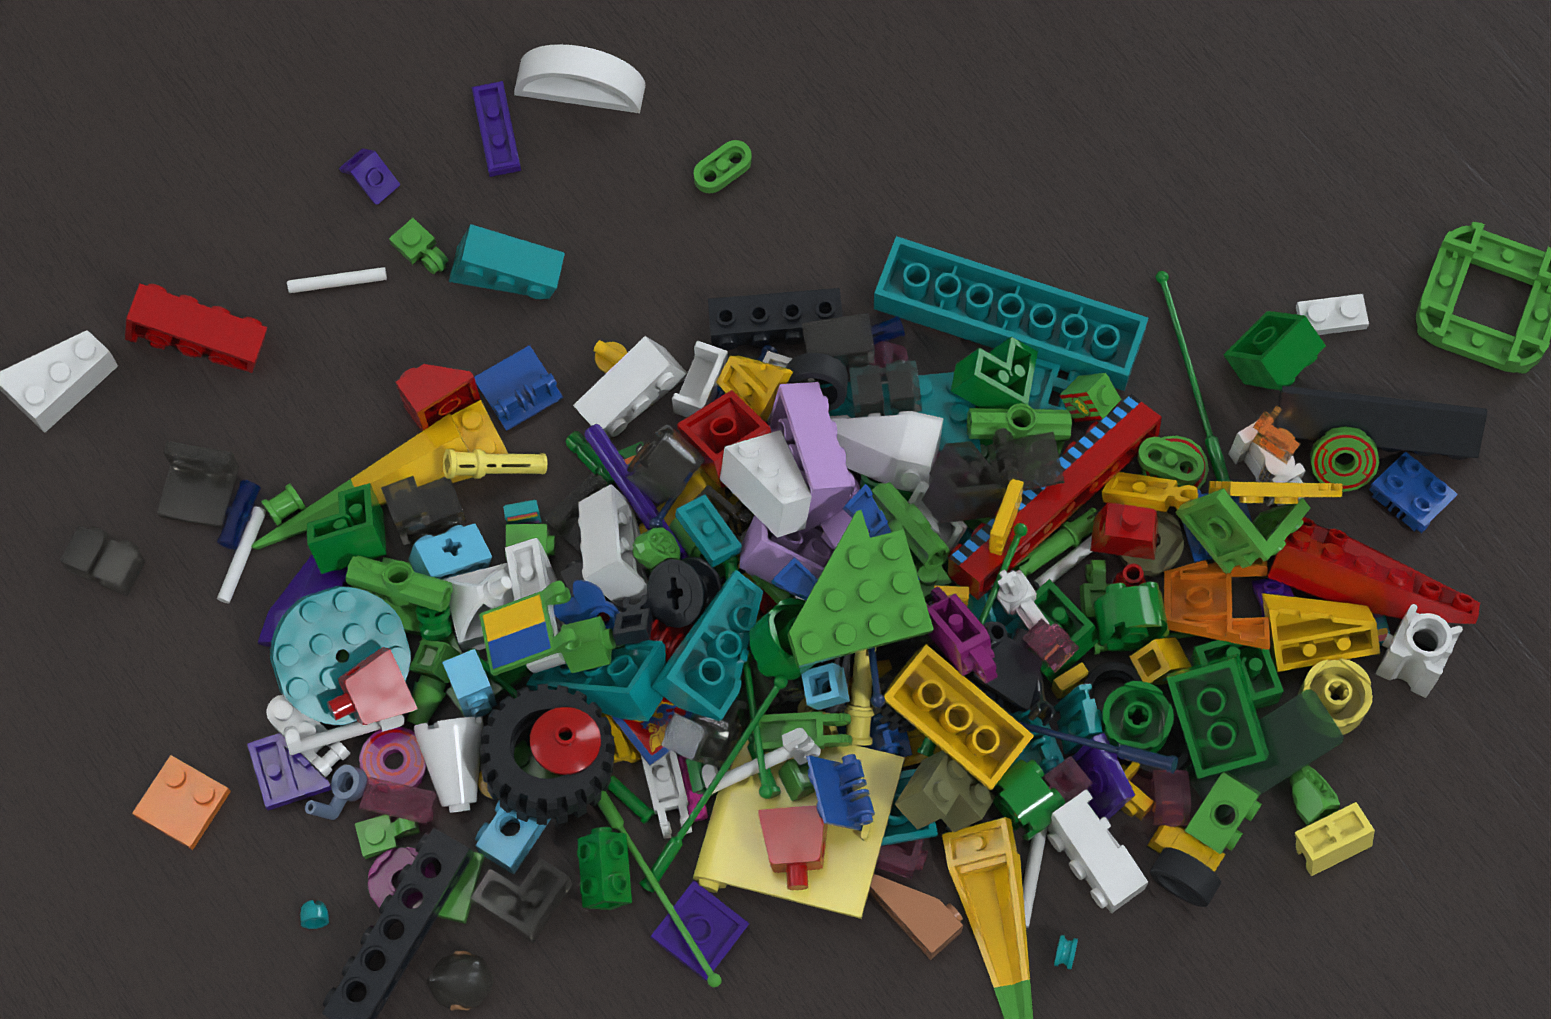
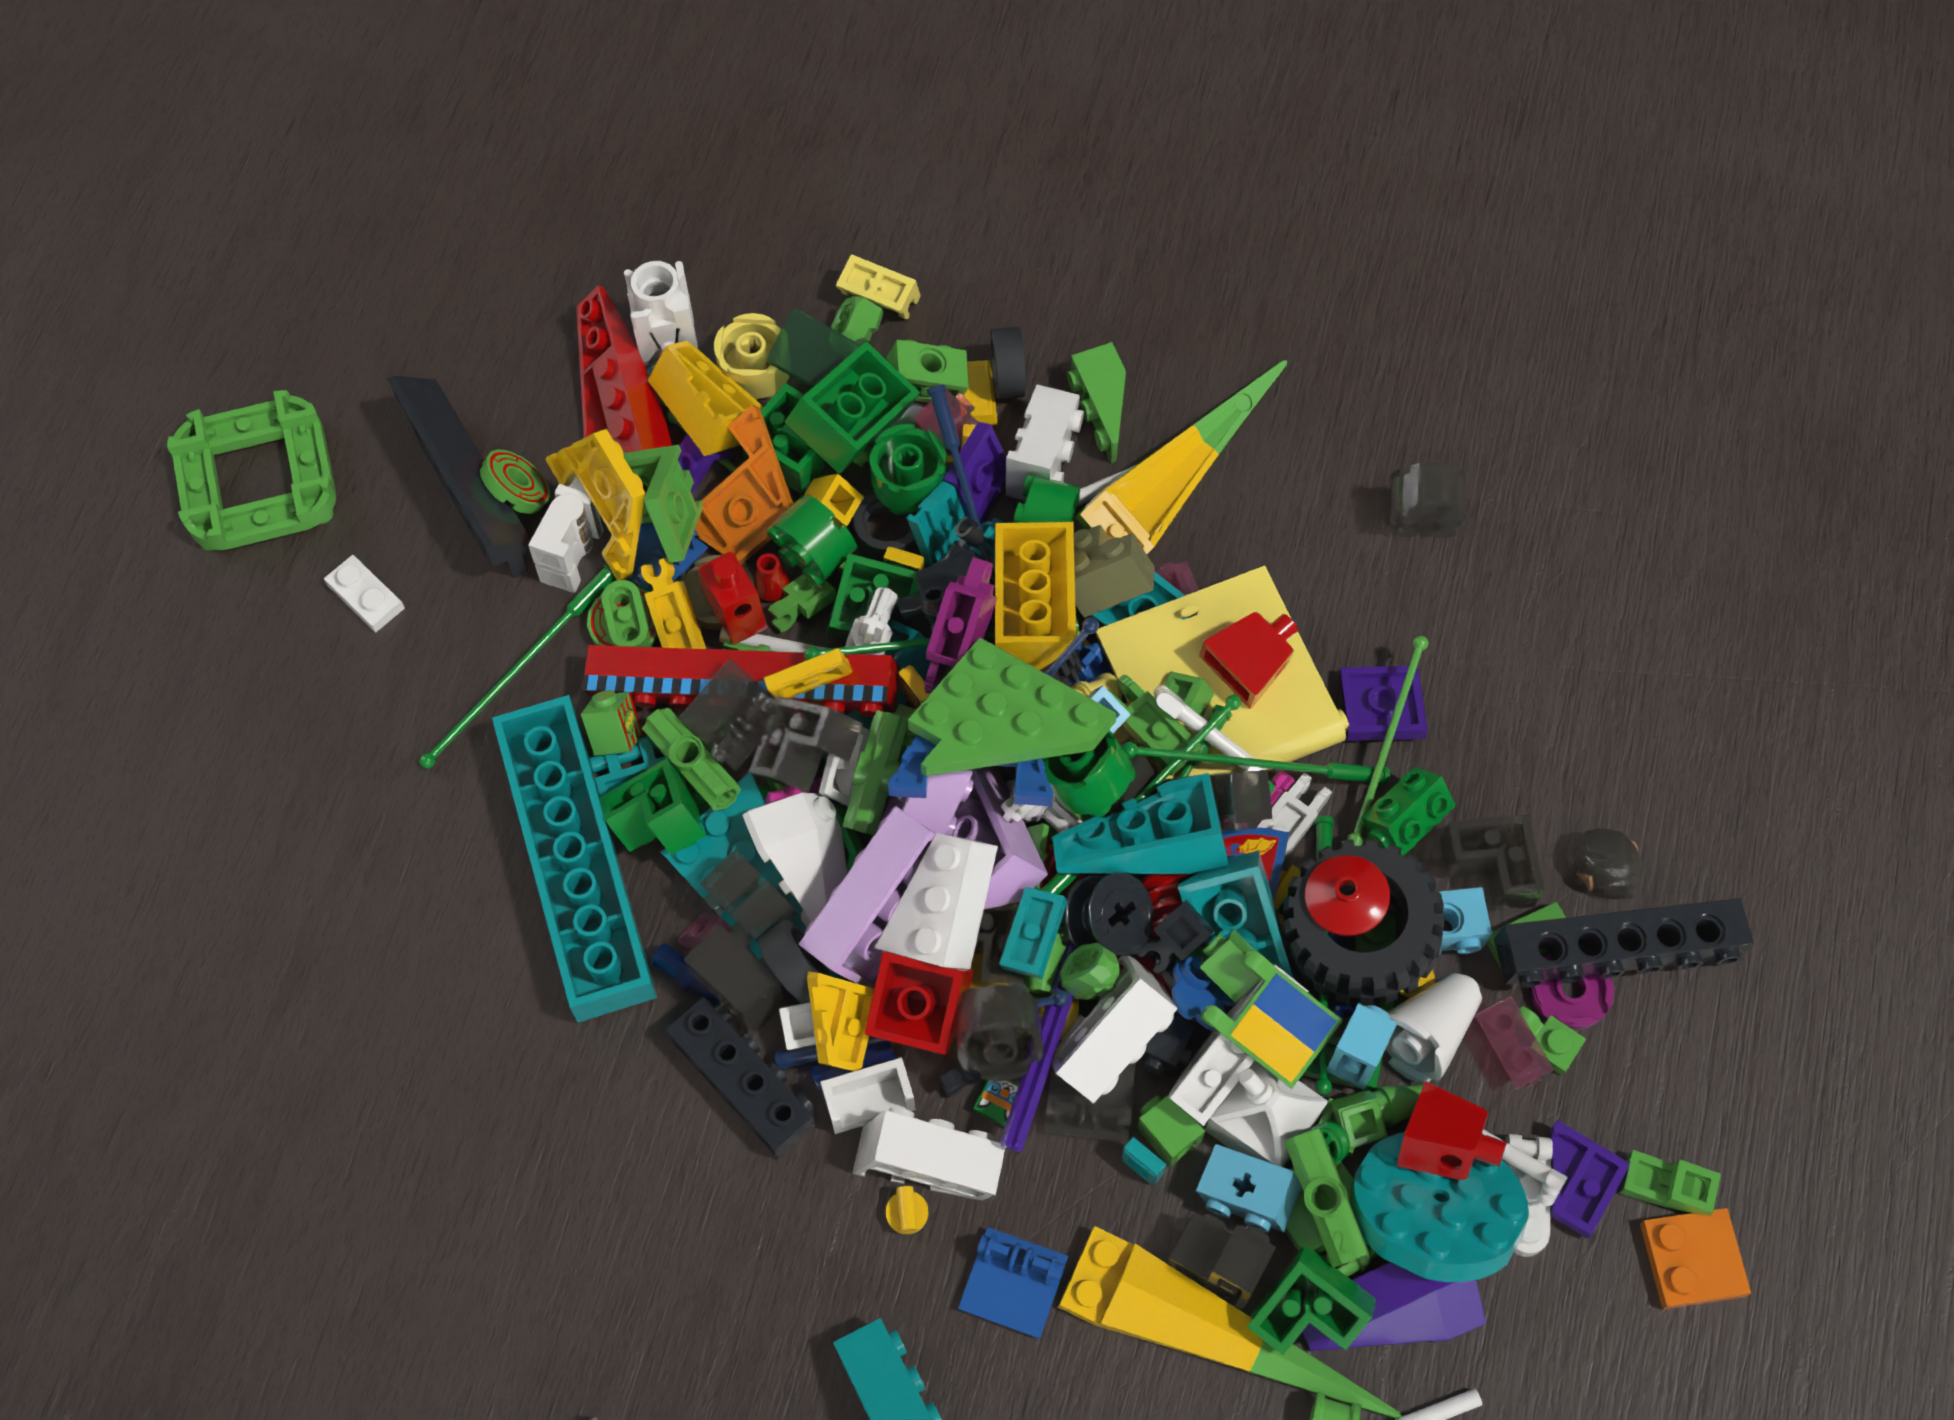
camera: 130 degrees left, 5 degrees down
(234, 825) = (1670, 1185): none -> bright green slope
(314, 915) = (1674, 1039): teal hinge -> none
(347, 785) = (1549, 1106): sand blue plate -> none
(383, 744) = (1482, 1064): magenta tile -> none
(435, 392) = (1098, 1344): red slope -> none
(479, 463) = (1132, 1234): light yellow pin -> none
(577, 444) = (1025, 1172): green axle -> none
(720, 166) = (605, 1266): bright green plate -> none
(836, 793) = (1178, 639): blue hinge -> none
(919, 915) = (1213, 535): nougat slope -> none
(1050, 644) = (898, 569): clear pink brick -> none
(1065, 952) = (1144, 416): teal bush -> none
(1067, 779) = (1003, 495): clear pink brick -> none
(1112, 938) = (1100, 383): none -> bright green slope
(1275, 350) = (445, 596): green brick -> none
(1275, 441) = (550, 516): clear orange bracket -> none
(1413, 491) = (506, 419): blue hinge -> none

